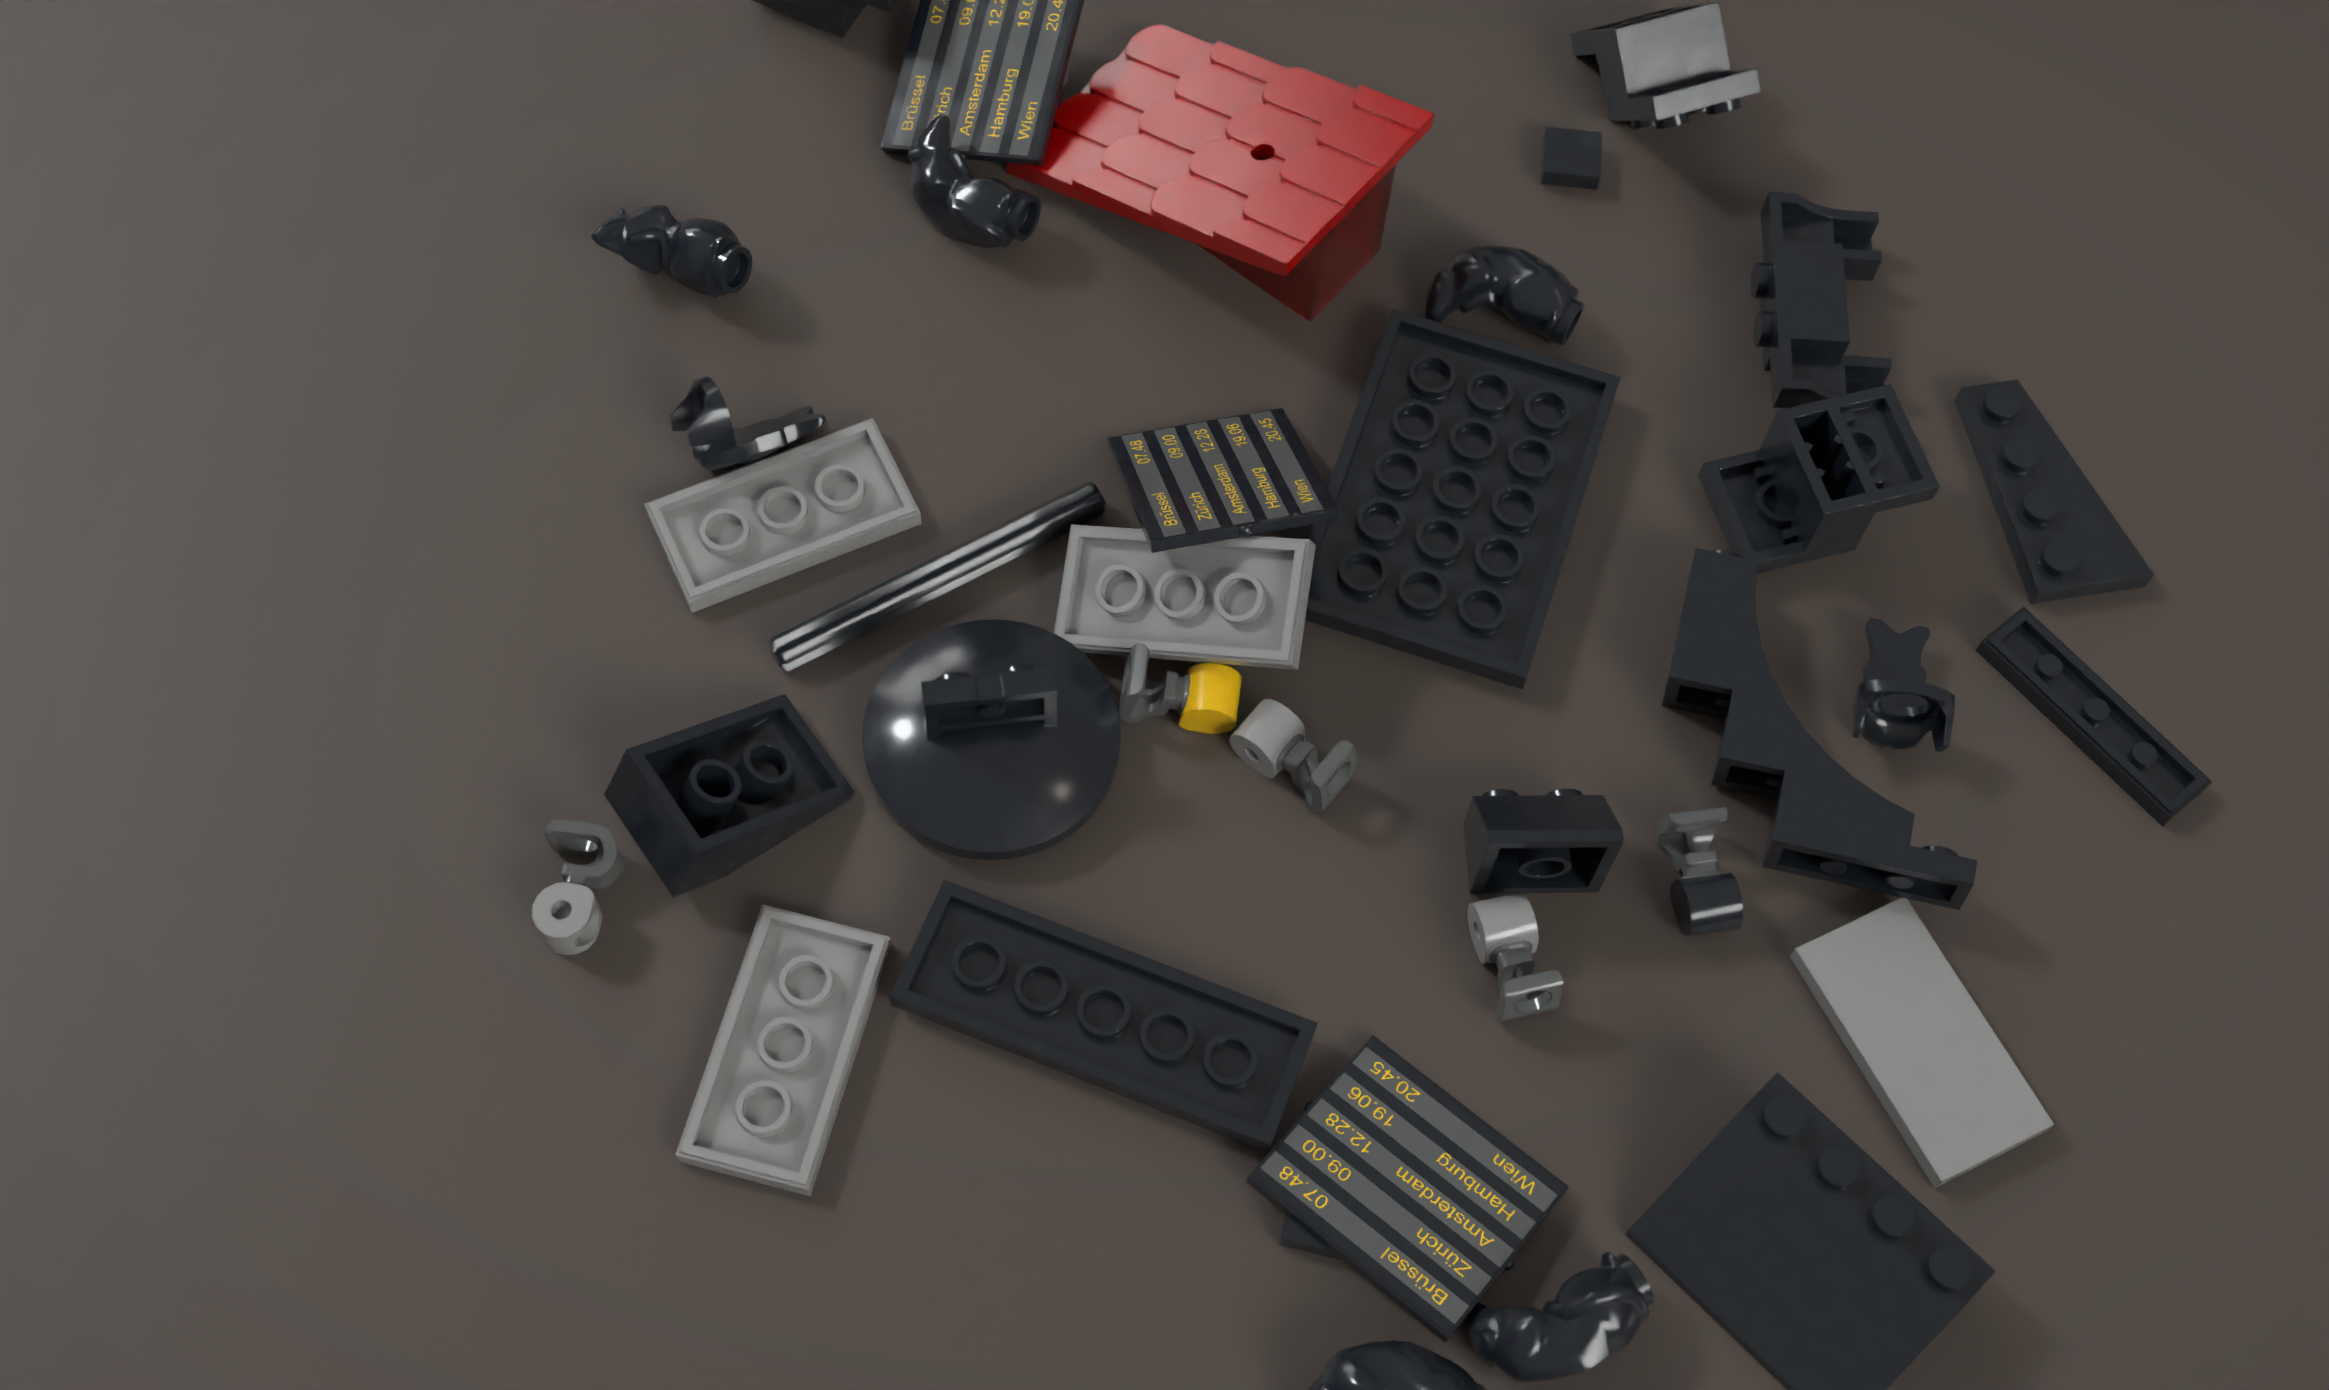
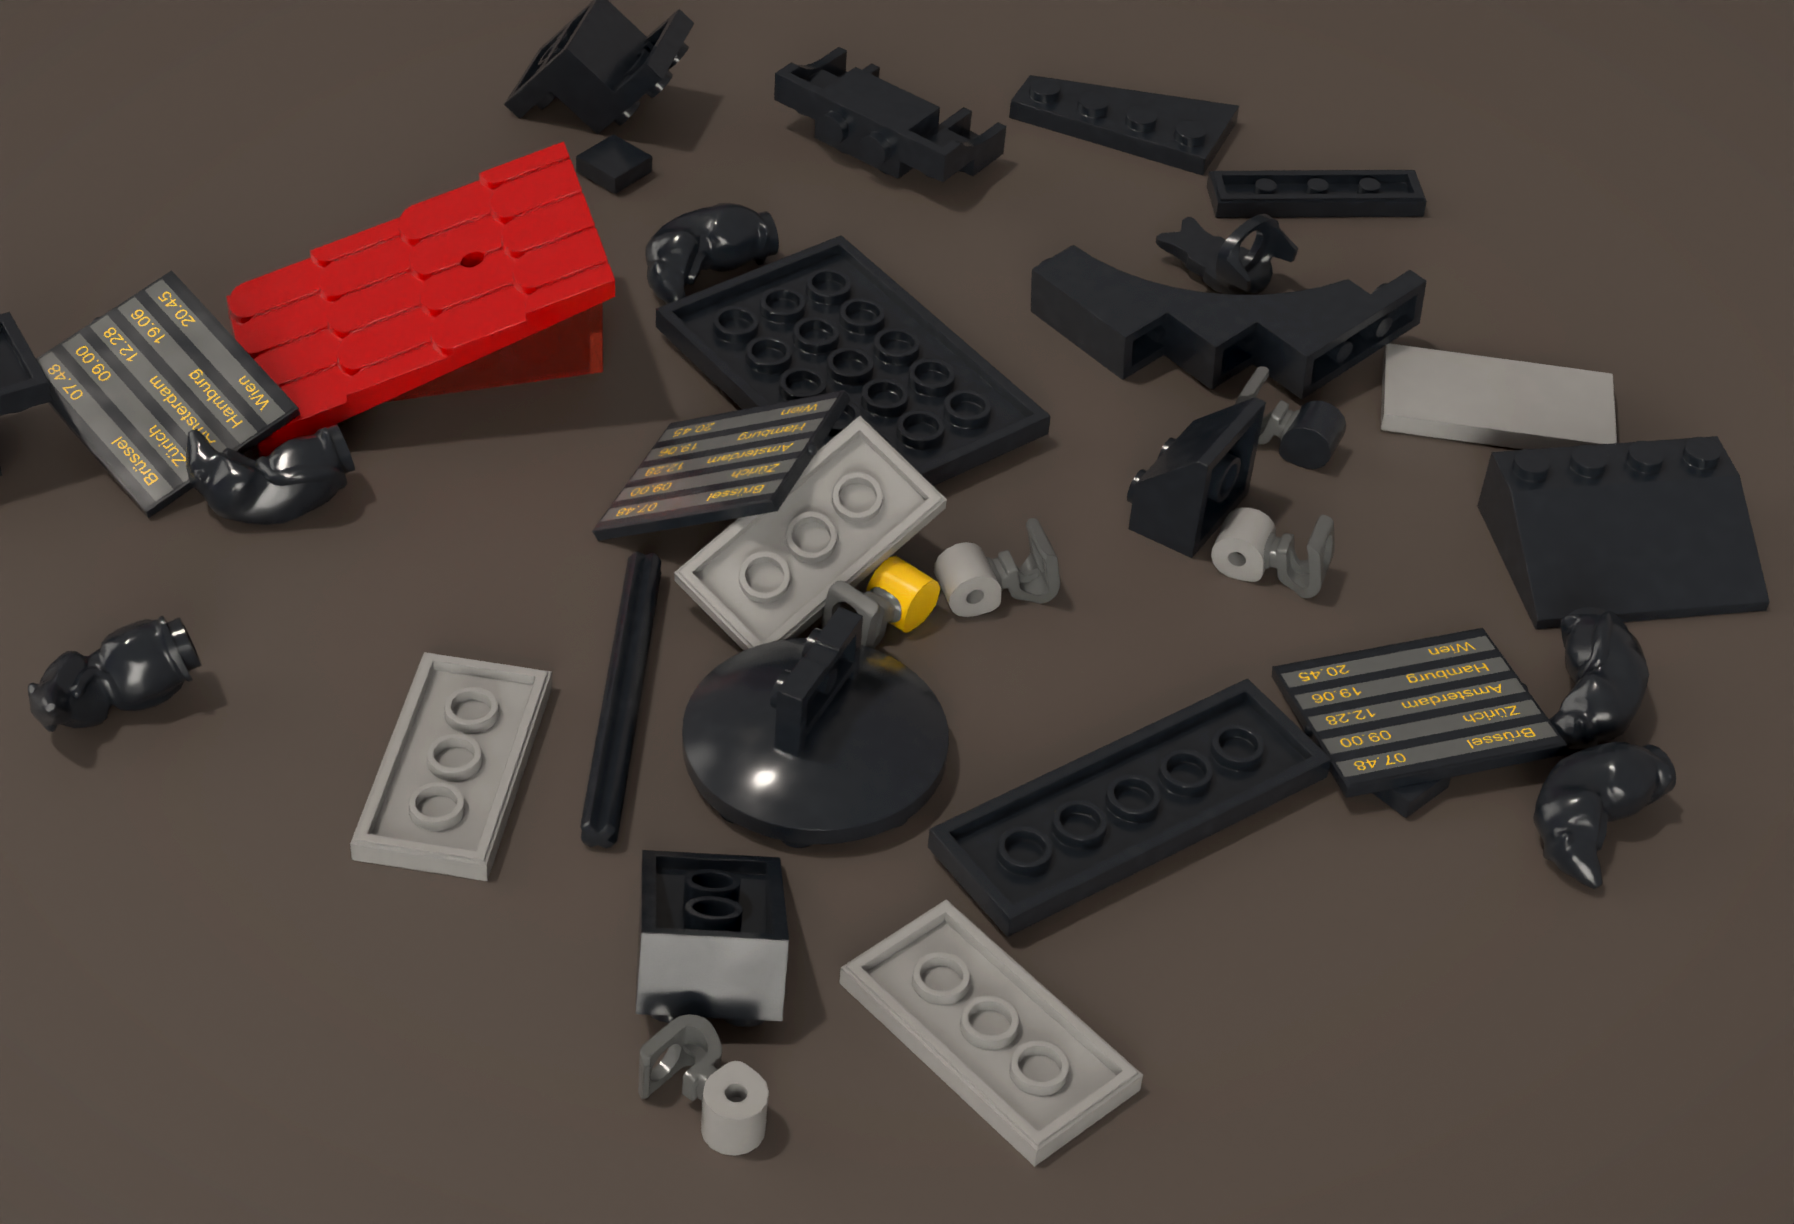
camera: 55 degrees left, 20 degrees down
(721, 446) = (365, 734): black hair -> none
(1818, 479) = (1031, 185): black bracket -> none

